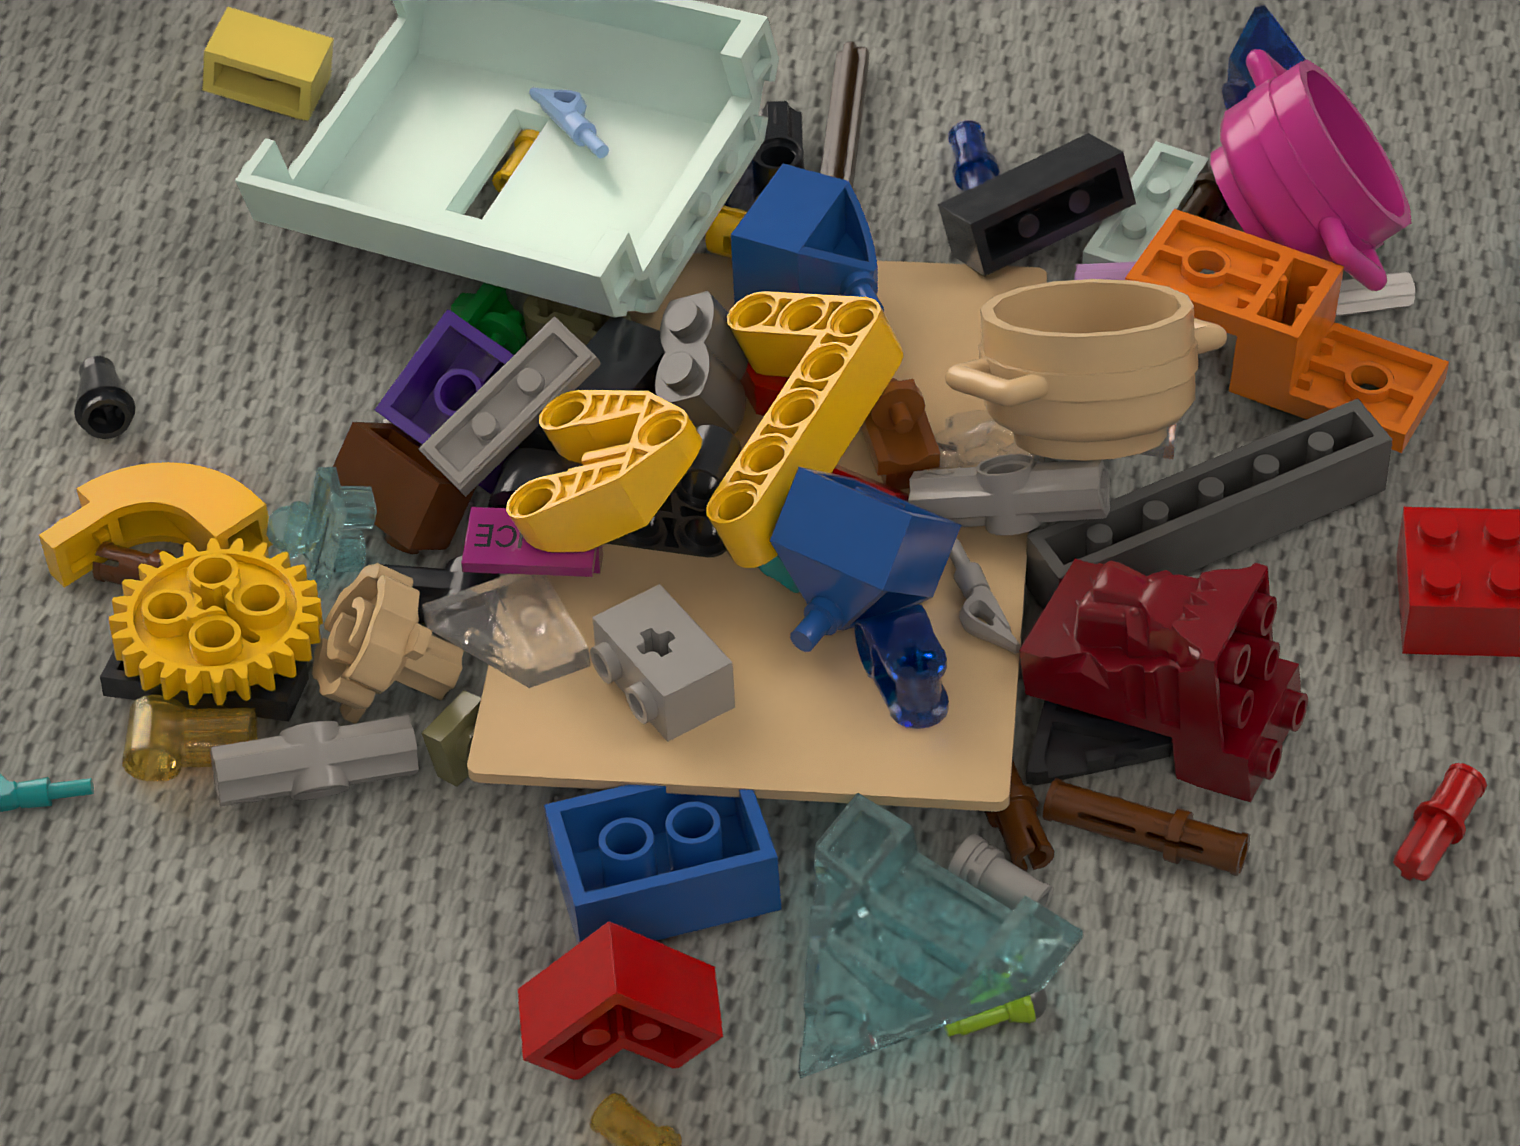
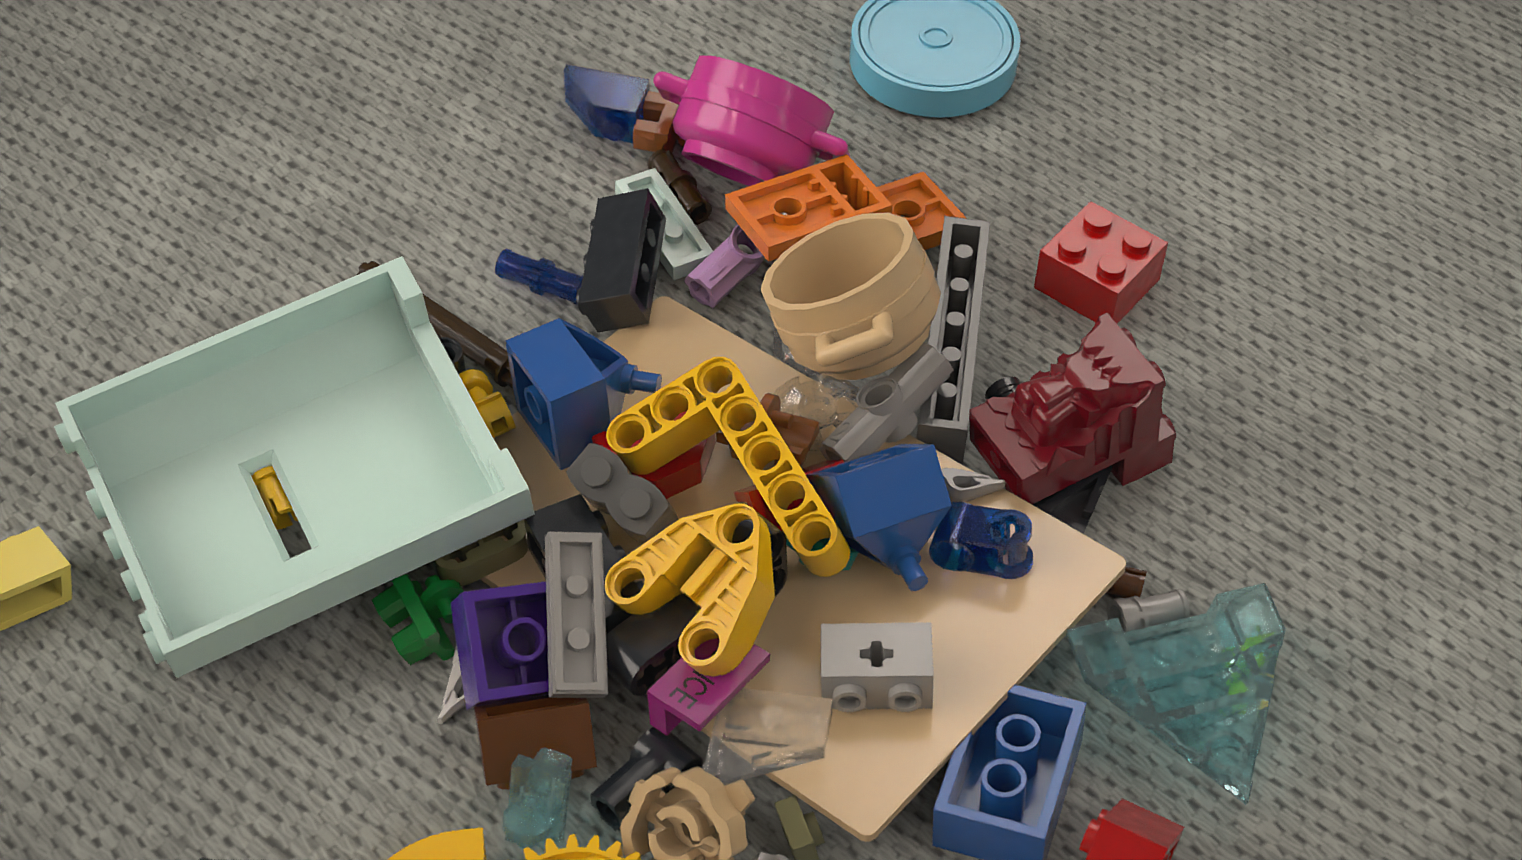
camera: 60 degrees left, 0 degrees up
(568, 112) = (292, 432): light blue hand -> none
(1172, 834) = (1177, 509): reddish brown pin -> none
(1439, 822) = (1258, 388): red axle -> none

